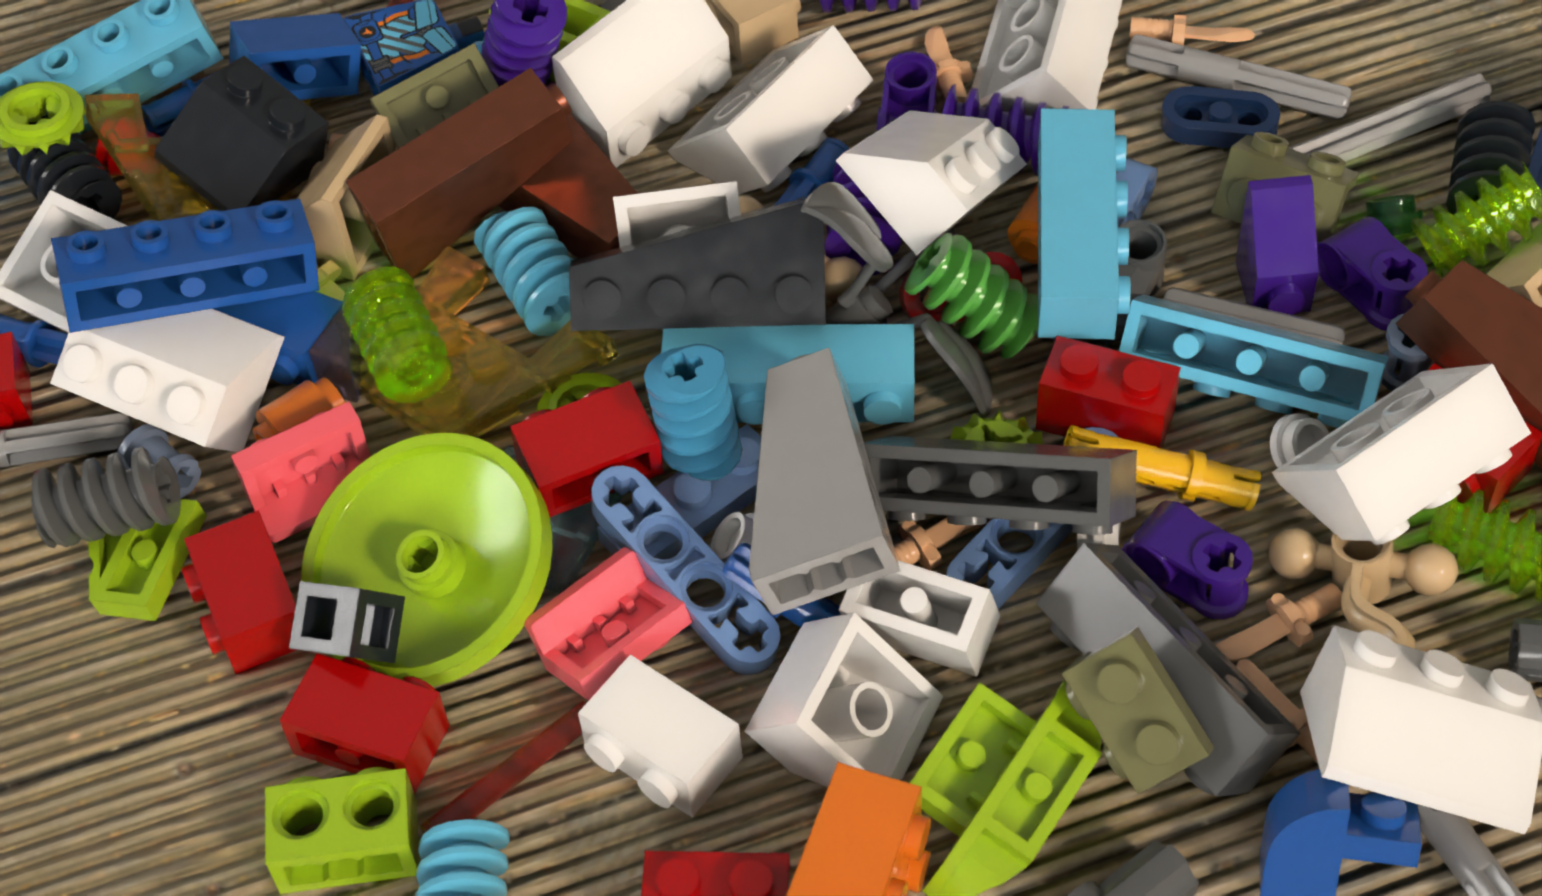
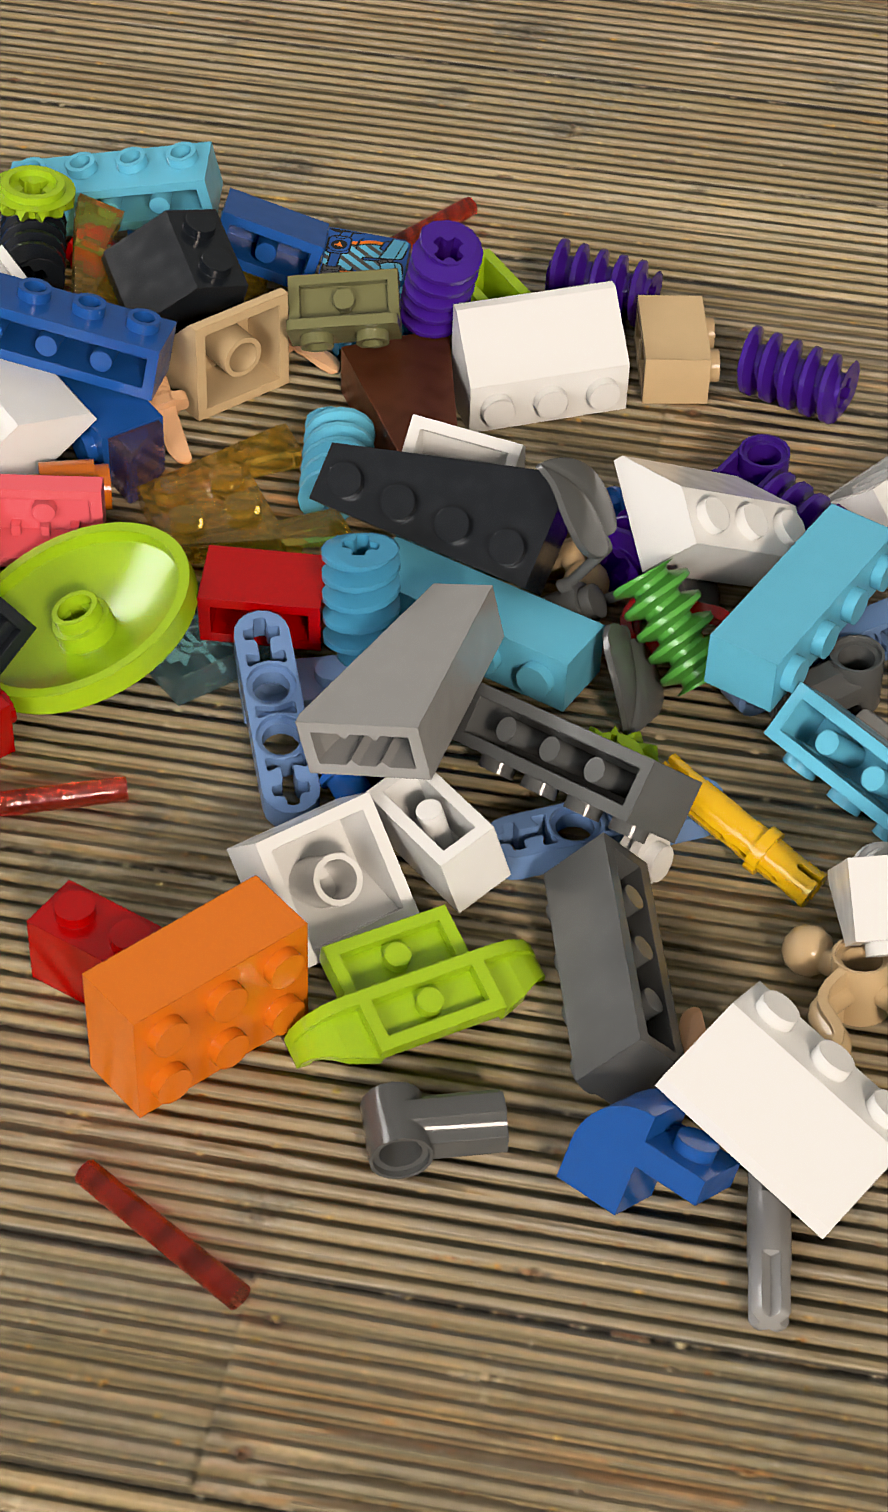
camera: 25 degrees right, 10 degrees down
(396, 335) = (178, 450): clear neon green piece -> none
(460, 170) = (319, 357): copper slope -> none
(603, 621) = (183, 727): coral bracket -> none
(660, 737) = (160, 826): white brick -> none
(776, 113) = (667, 428): white slope -> none
(923, 544) = (491, 799): light nougat piece -> none
(949, 70) = (813, 469): light nougat piece -> none
(1106, 390) = (741, 754): red brick -> none
(1136, 711) = (549, 976): olive bracket -> none
(1189, 553) = (709, 913): dark purple piece -> none
(1285, 620) = (721, 998): light nougat piece -> none

